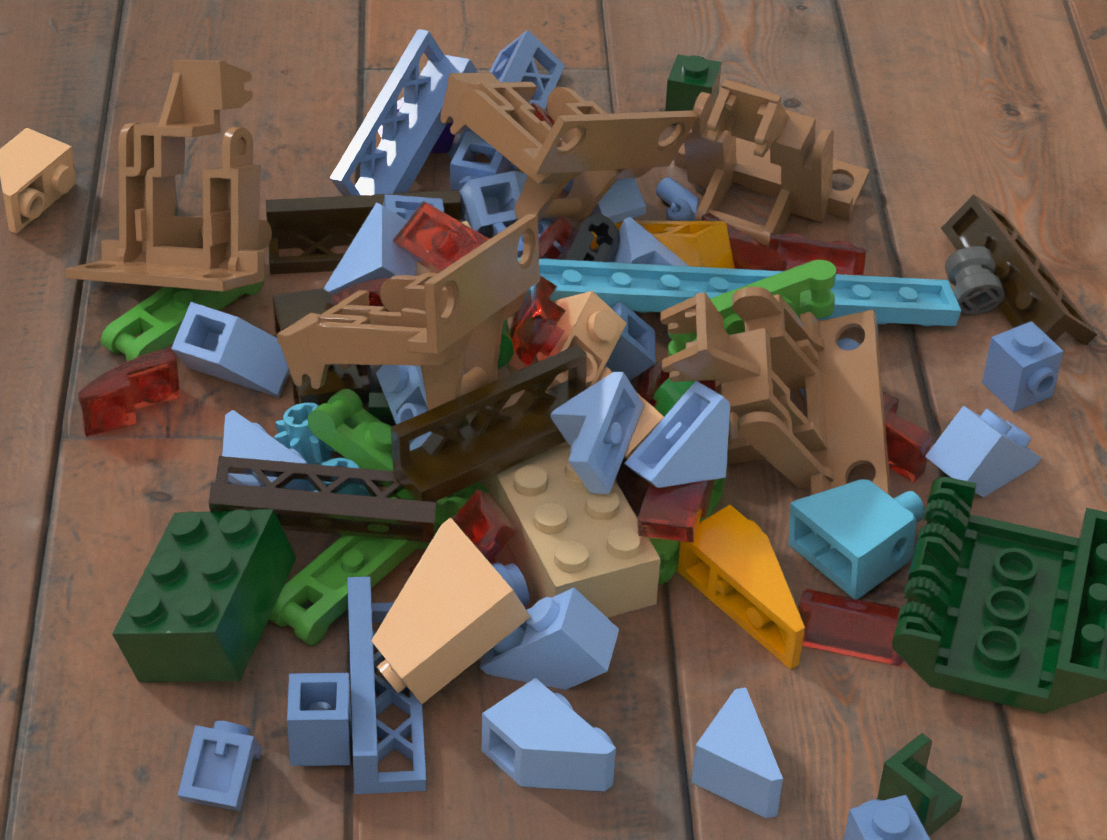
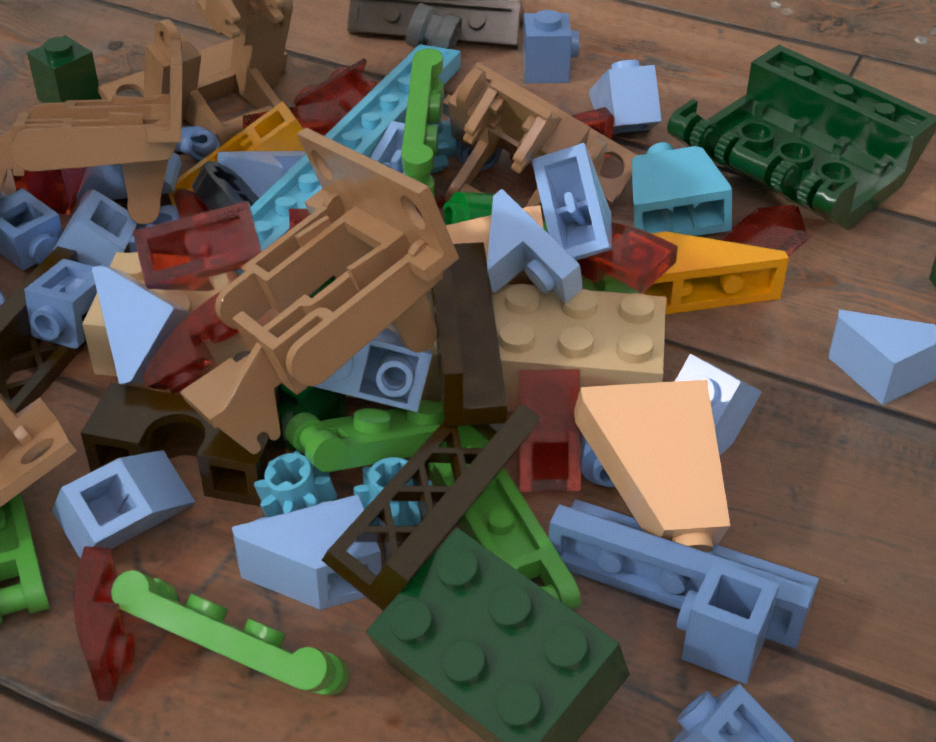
camera: 60 degrees left, 0 degrees up
(151, 456) = (253, 646): none -> bright green plate
(546, 742) = (815, 468): light blue slope -> none

